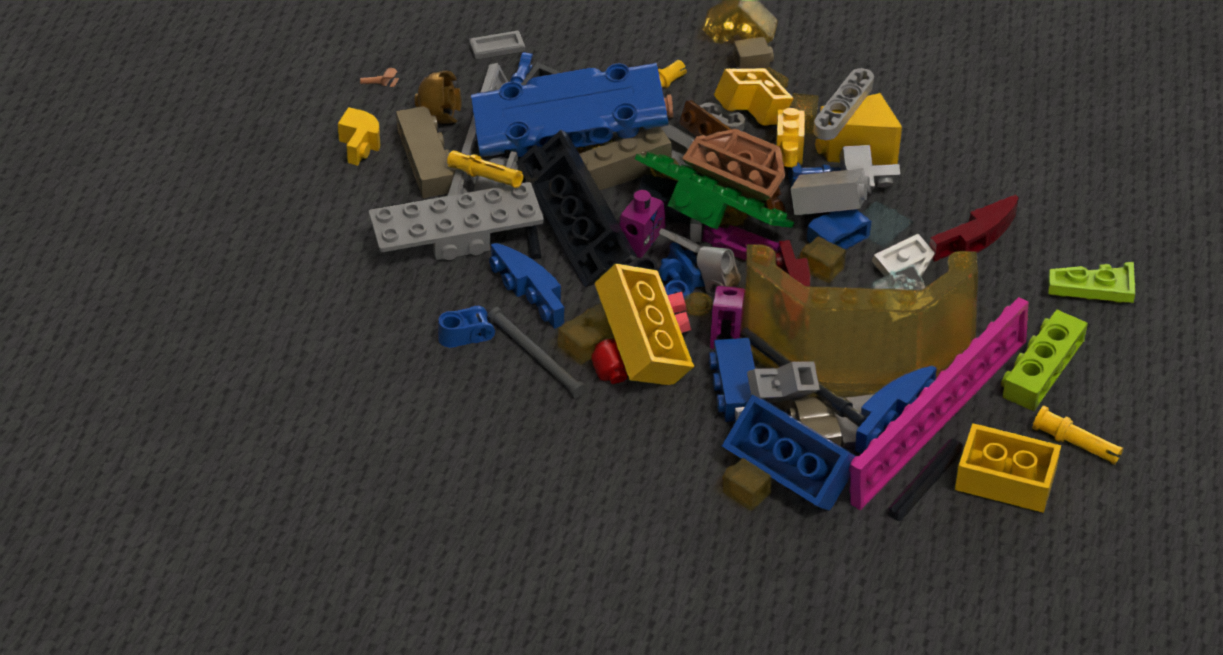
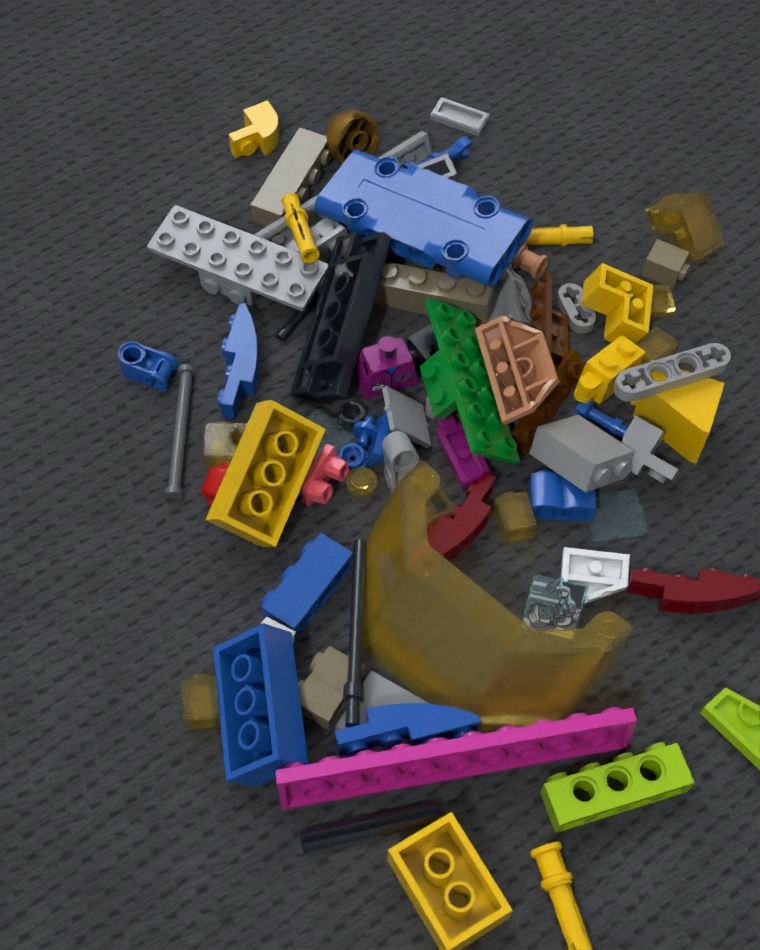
camera: 40 degrees right, 15 degrees up
(384, 80) = (335, 92): nougat hand -> none
(727, 305) = (361, 509): magenta torso -> none
(785, 382) = (322, 624): light grey brick -> none

